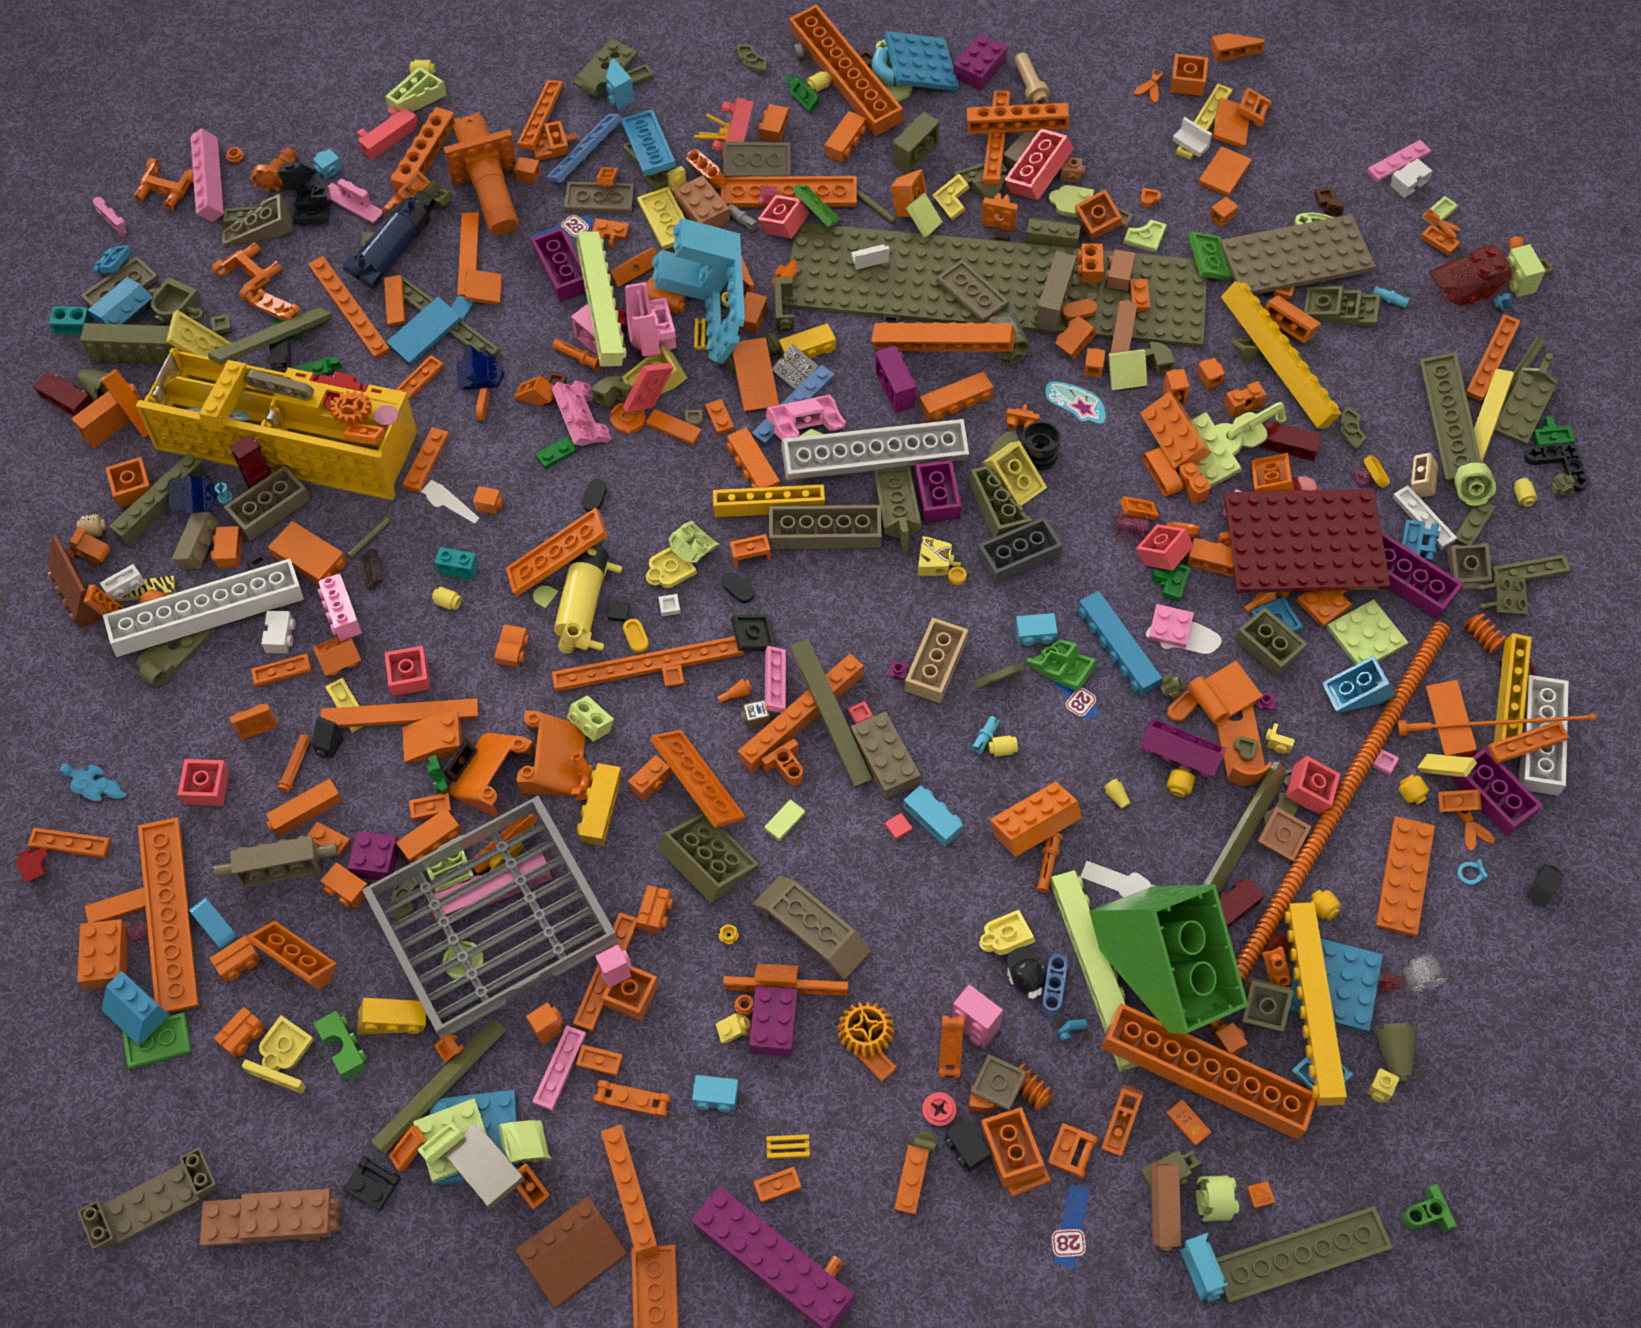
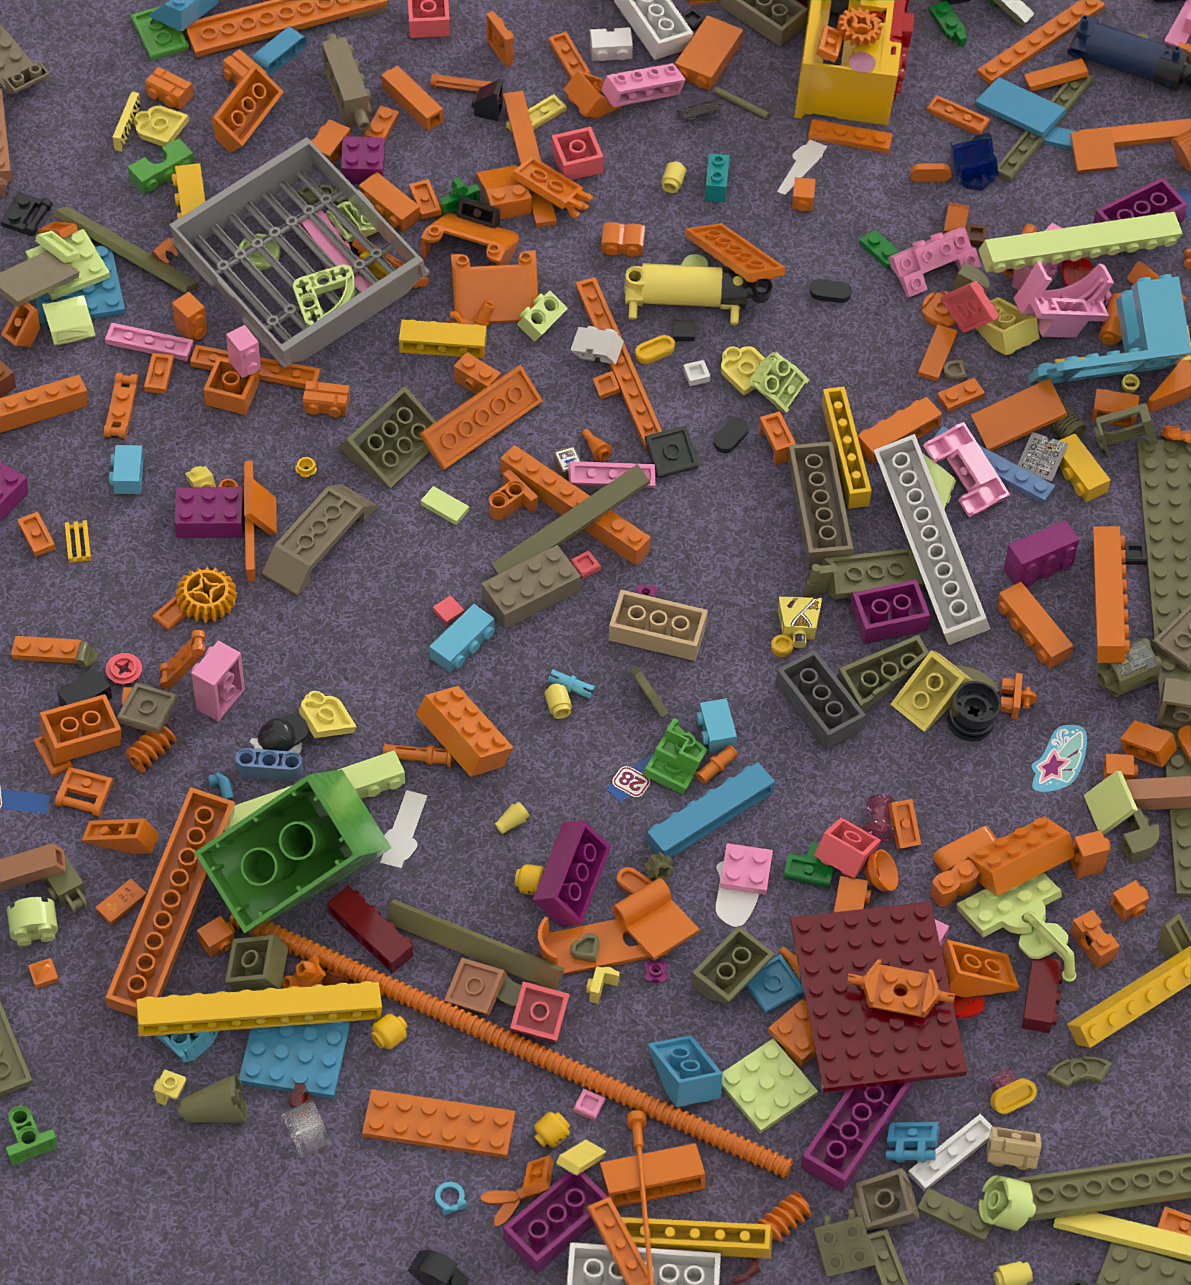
camera: 80 degrees right, 5 degrees down
(442, 694) = (552, 185): none -> orange tile
(532, 905) = (313, 289): none -> yellowish green beam
(635, 669) = (597, 343): none -> white brick
(1072, 634) = (716, 764): none -> orange pin
(1312, 505) = (920, 989): none -> orange plate

